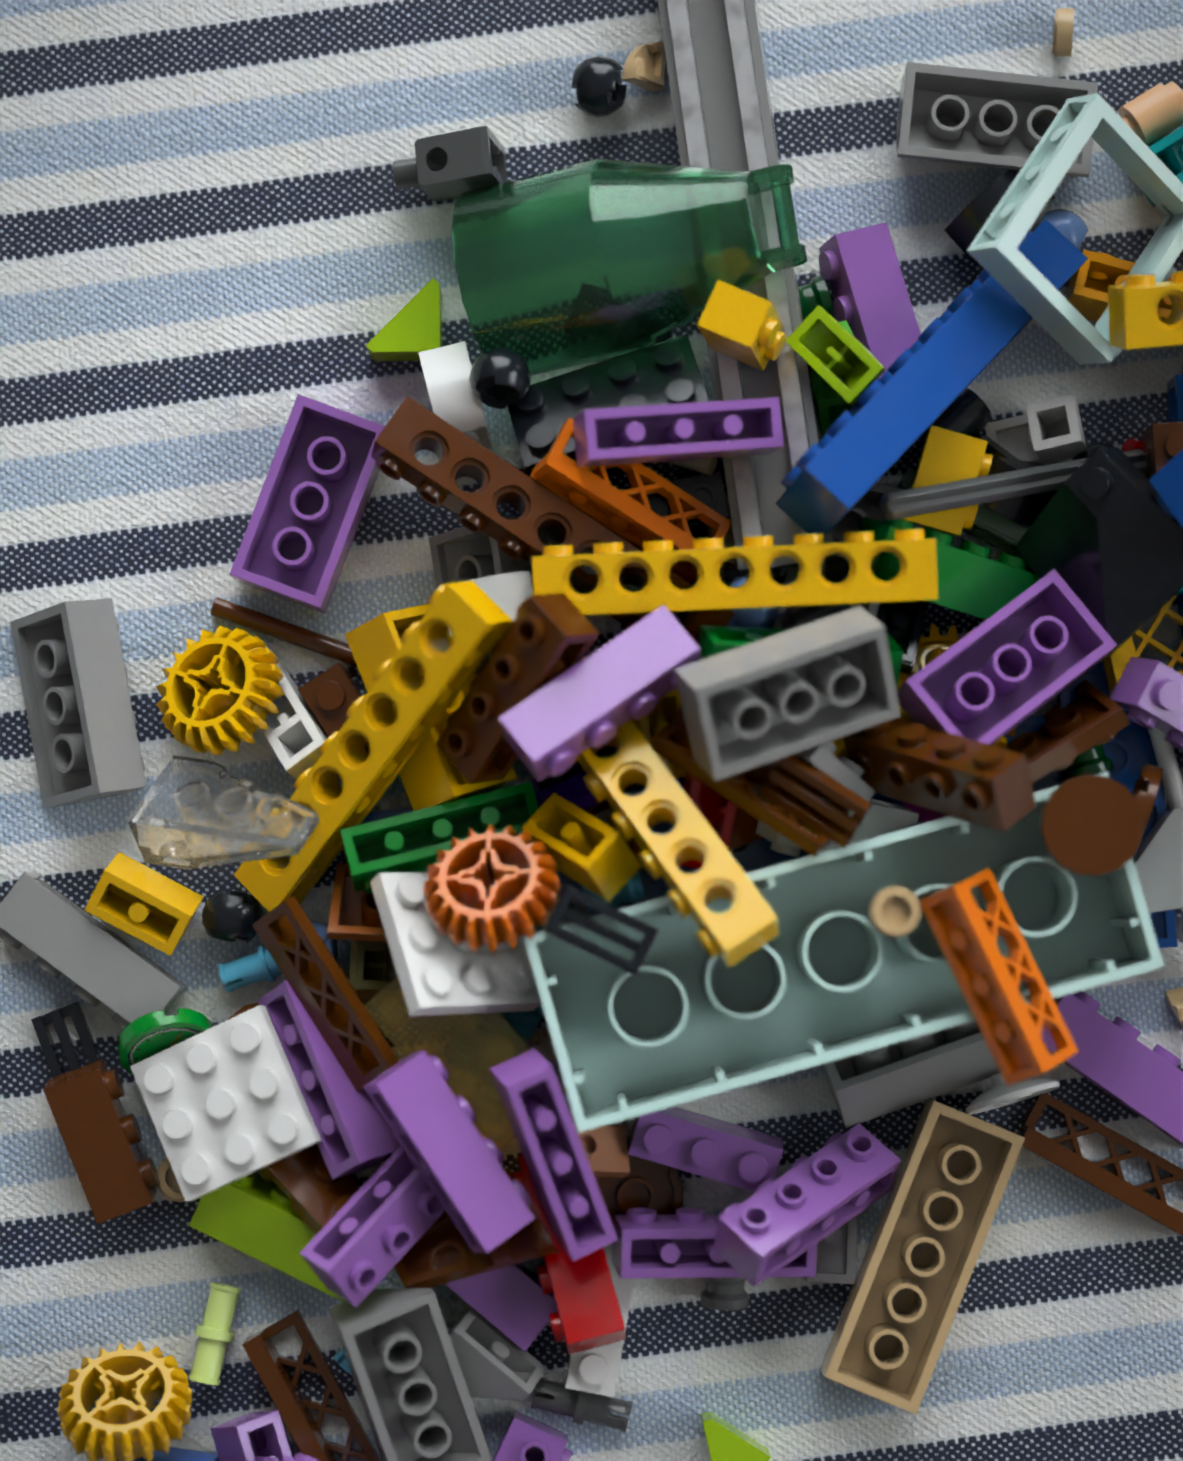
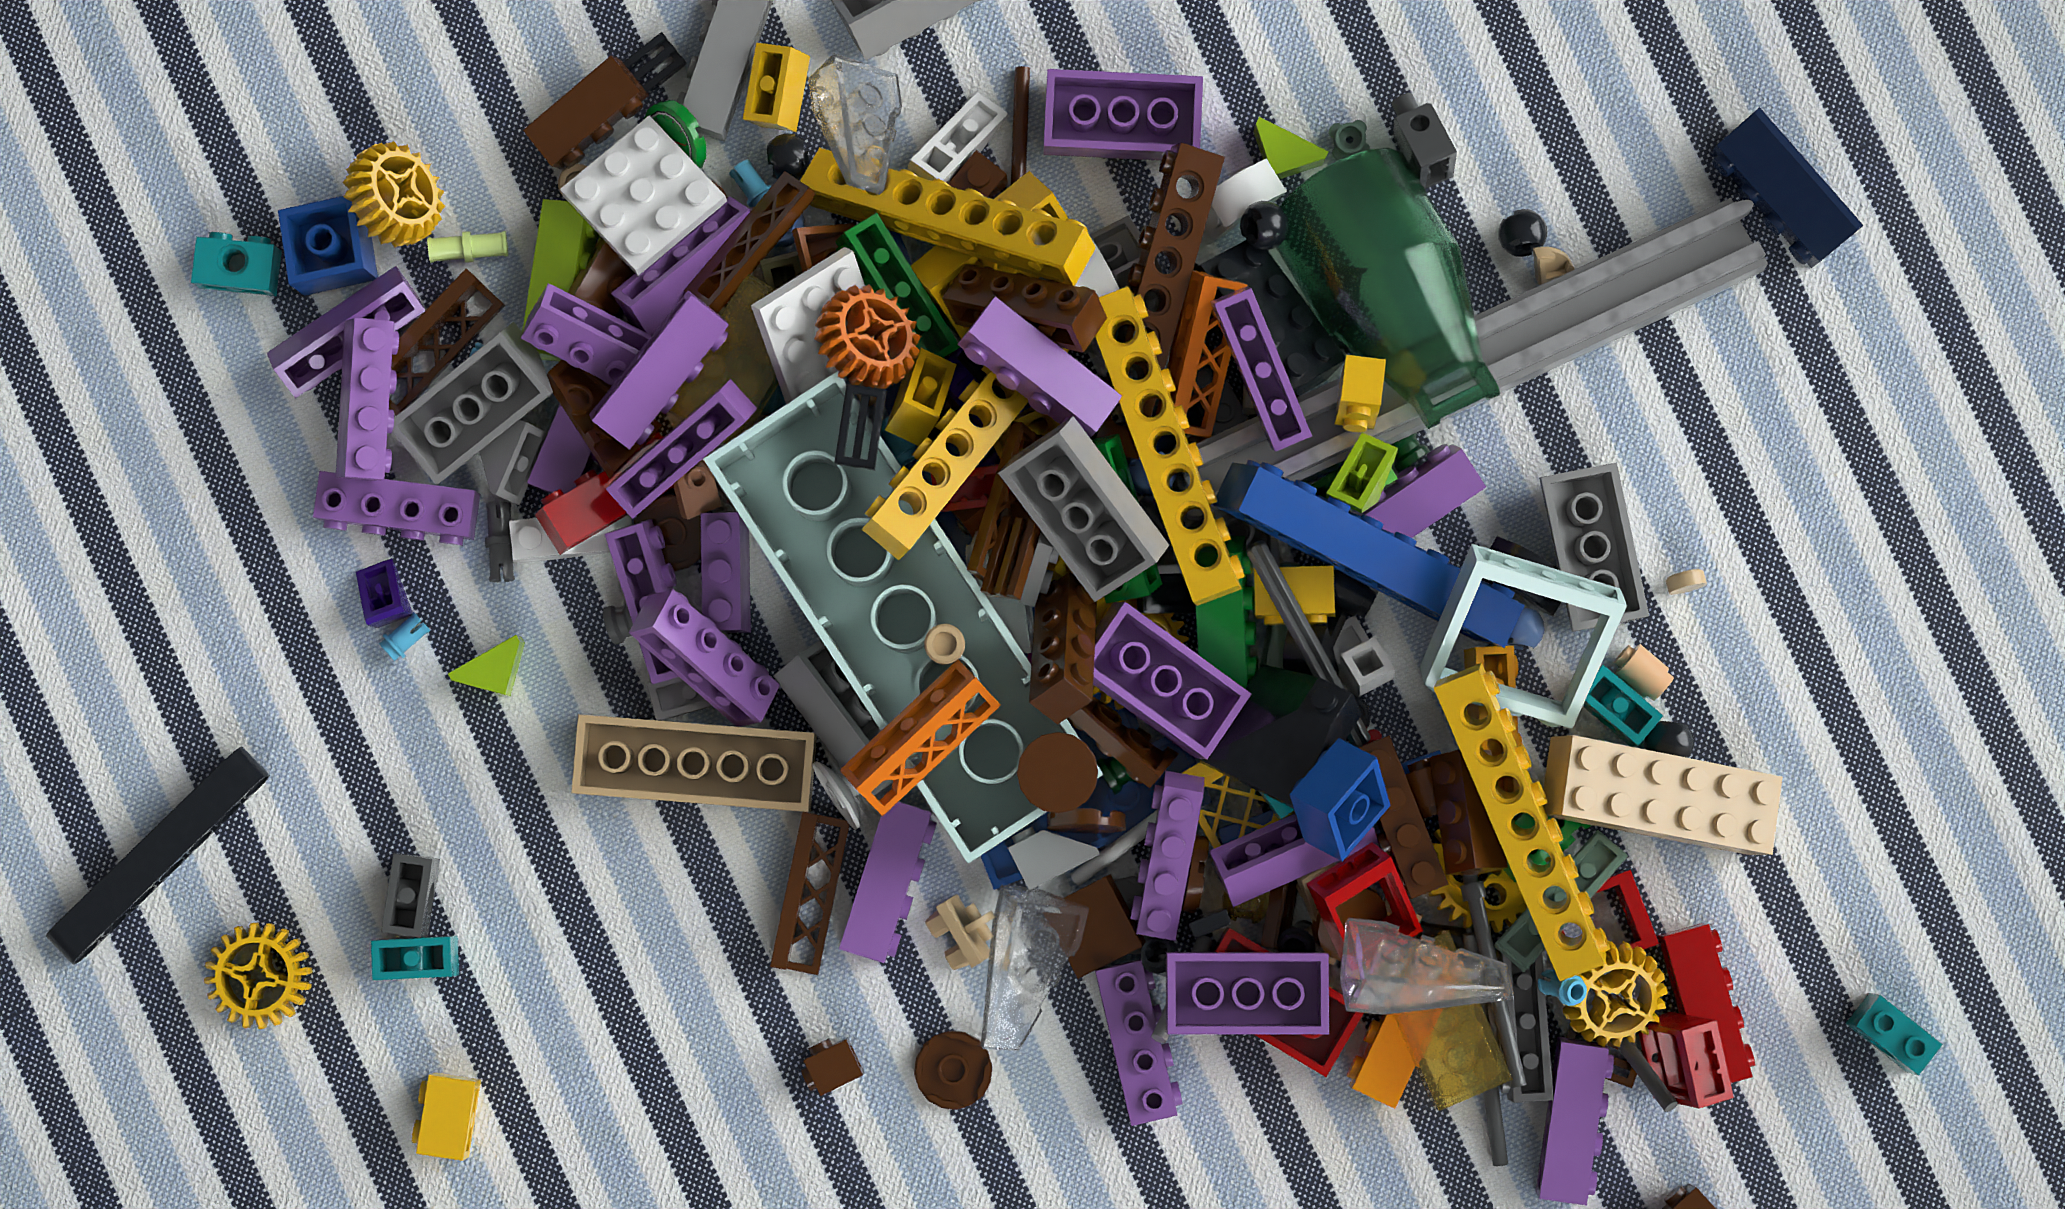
camera: 70 degrees right, 0 degrees up
(211, 698) = (956, 91): yellow gear -> none
(422, 239) = (1339, 134): none -> sand green plate

